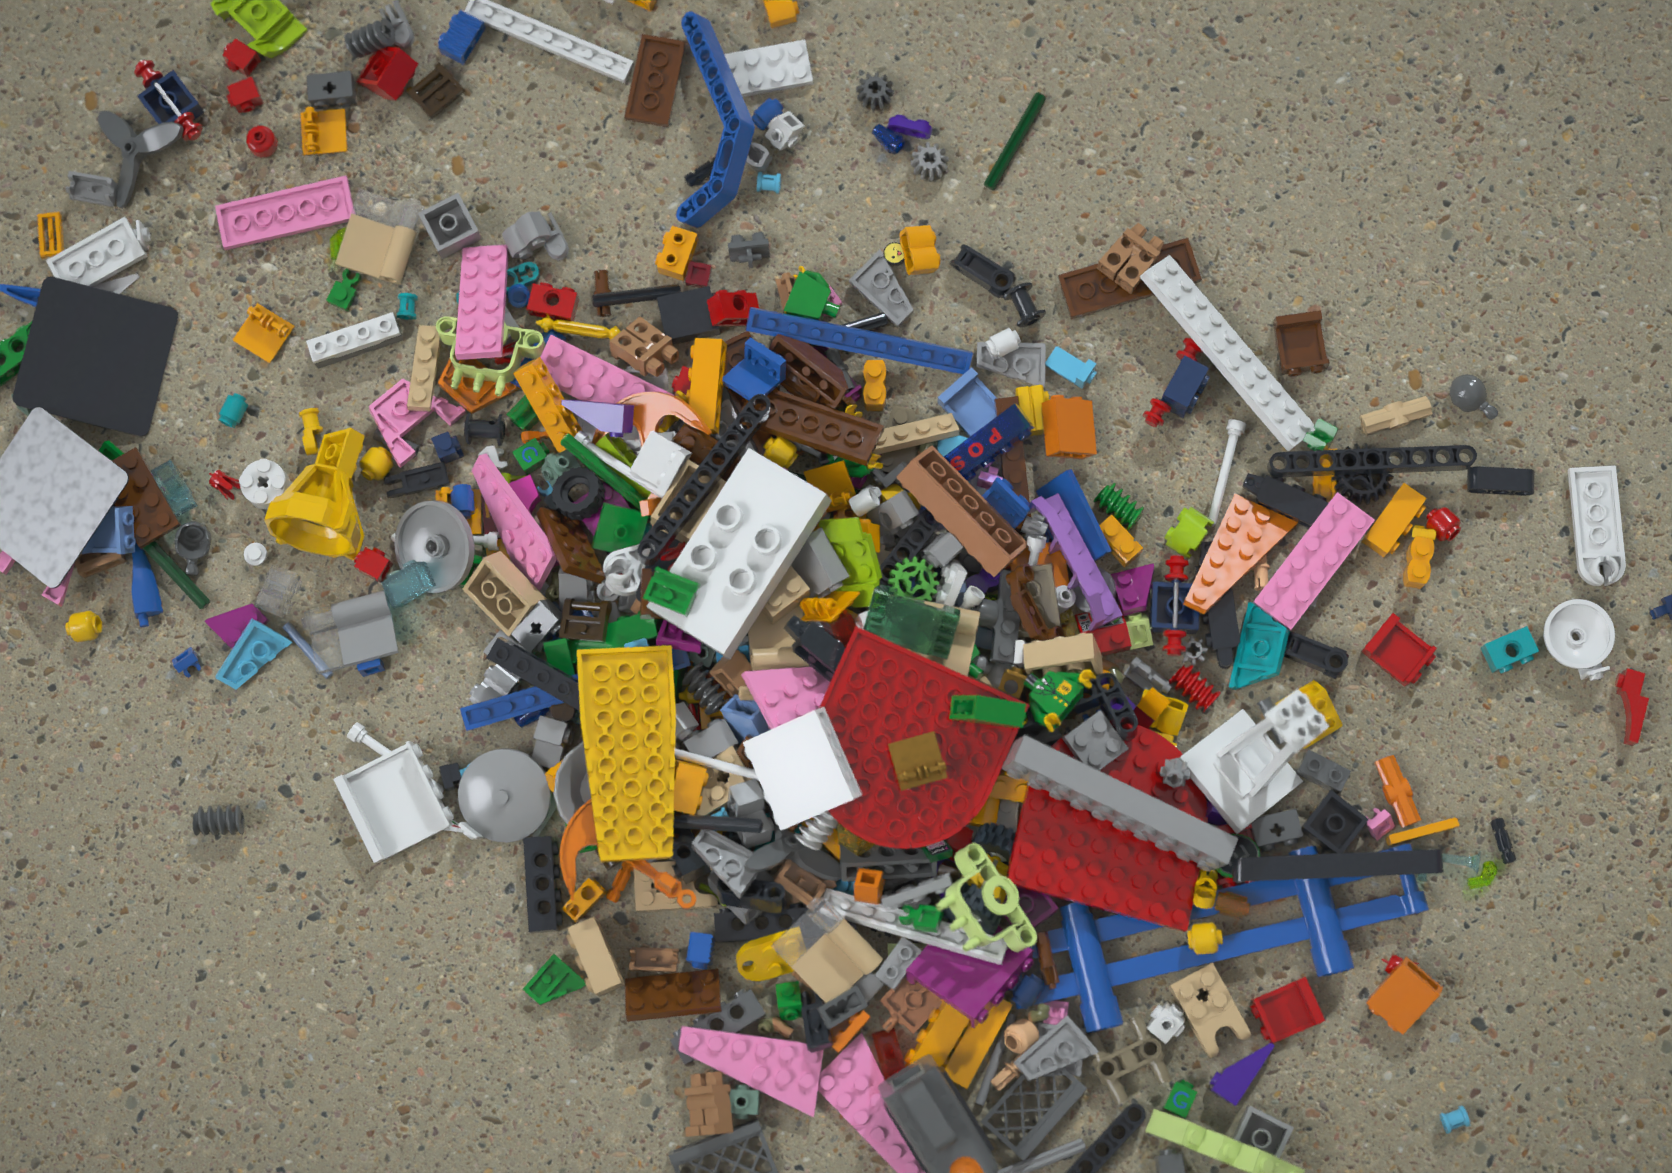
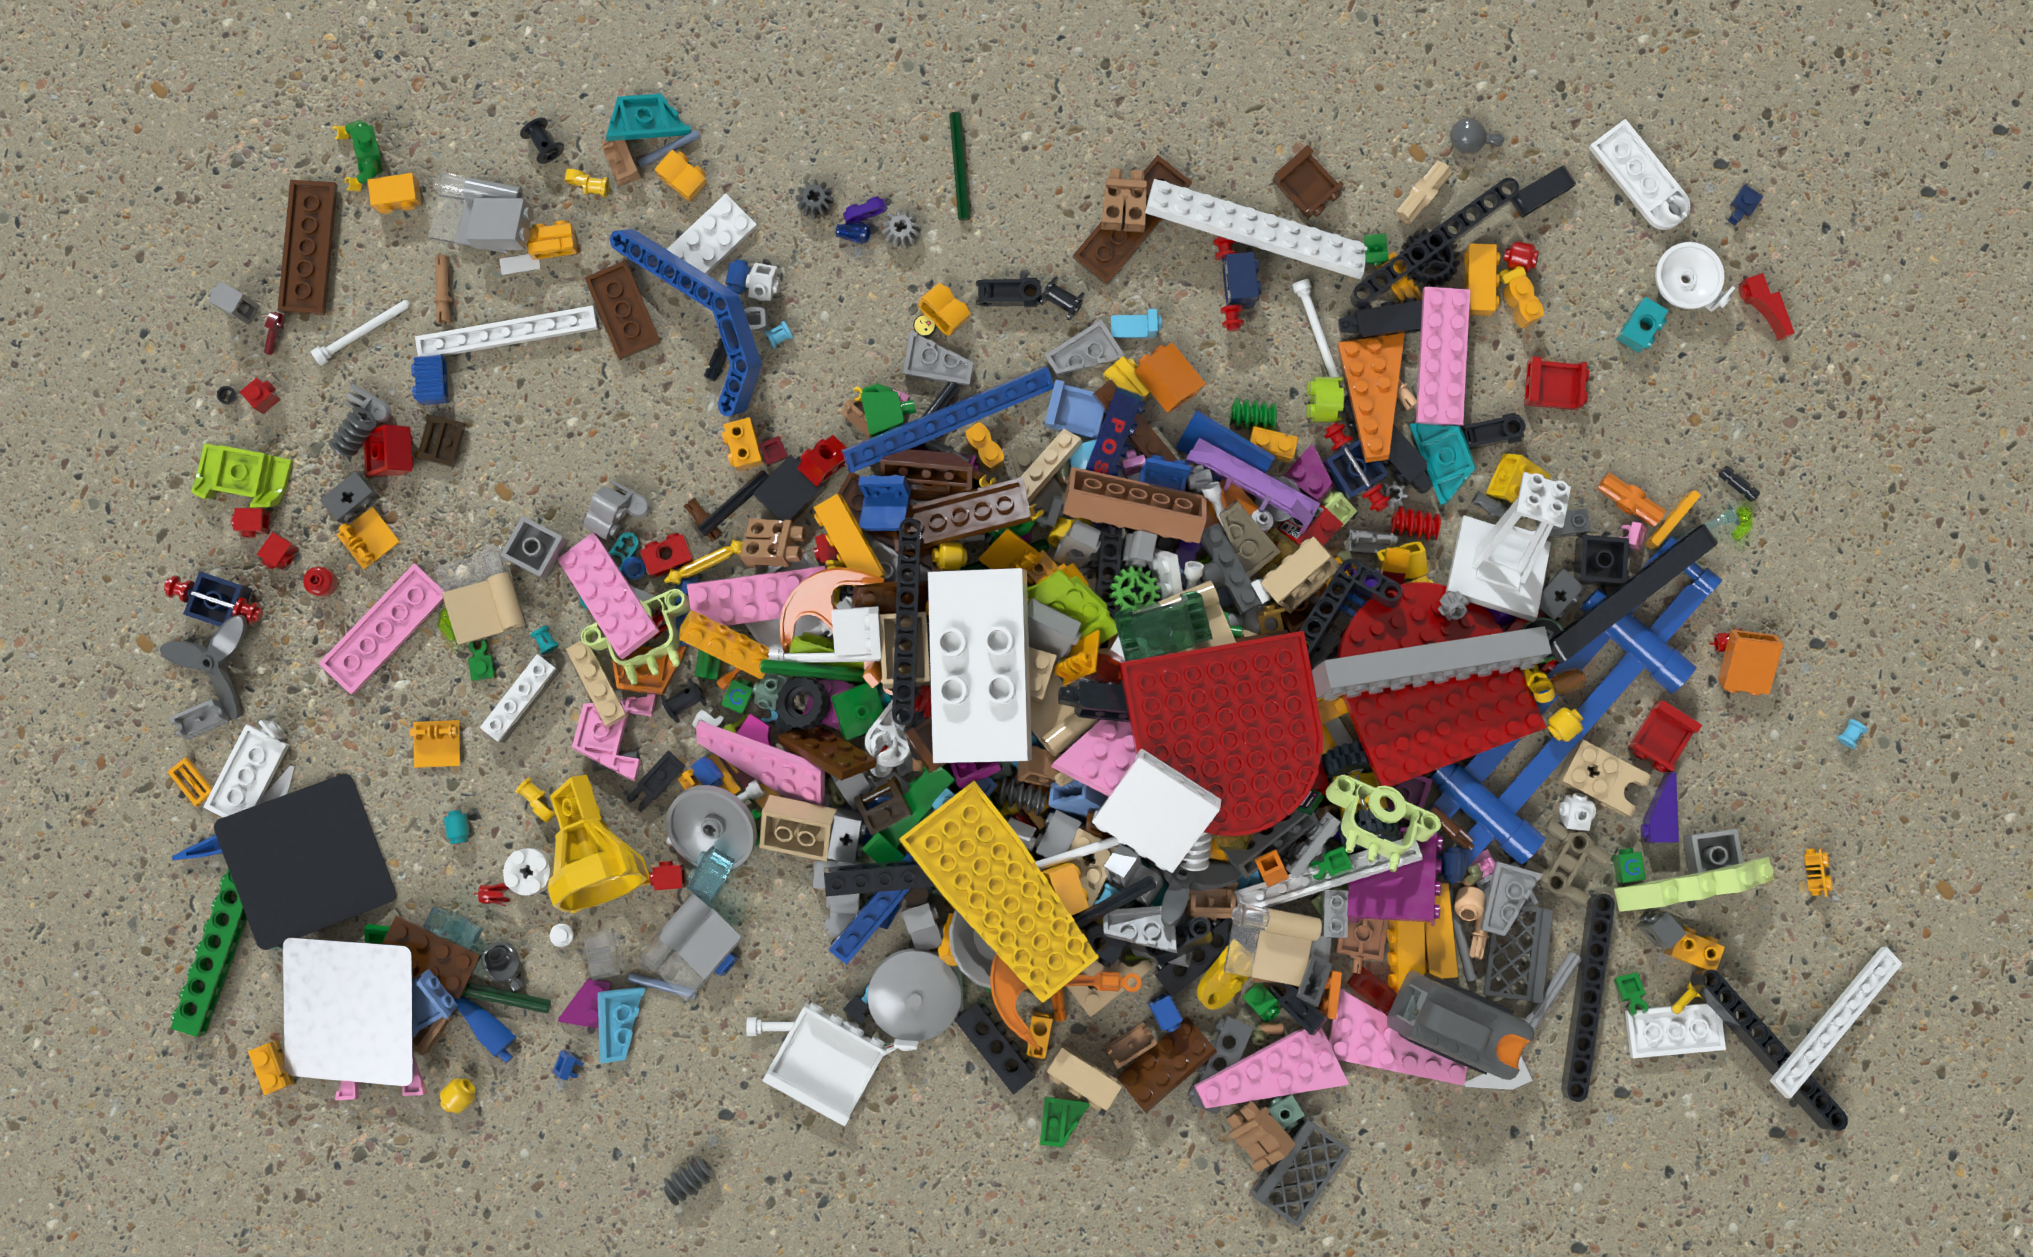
camera: 40 degrees left, 5 degrees up
(376, 463) = (611, 790): yellow head -> none
(447, 447) = (662, 736): dark blue brick -> none
(604, 416) = (782, 624): slope -> none
(671, 591) = (947, 737): green plate -> none
(749, 250) = (802, 402): dark grey hips -> none
(865, 500) = (1048, 548): white piece -> none
(917, 760) = (1247, 740): pearl gold hinge -> none
(987, 711) = (1276, 660): green slope -> none
(1003, 343) = (1068, 342): white brick -> none
(1026, 607) = (1242, 550): reddish brown plate -> none
(1056, 695) = (1319, 608): green torso -> none
(1095, 742) = (1374, 625): light grey plate -> none

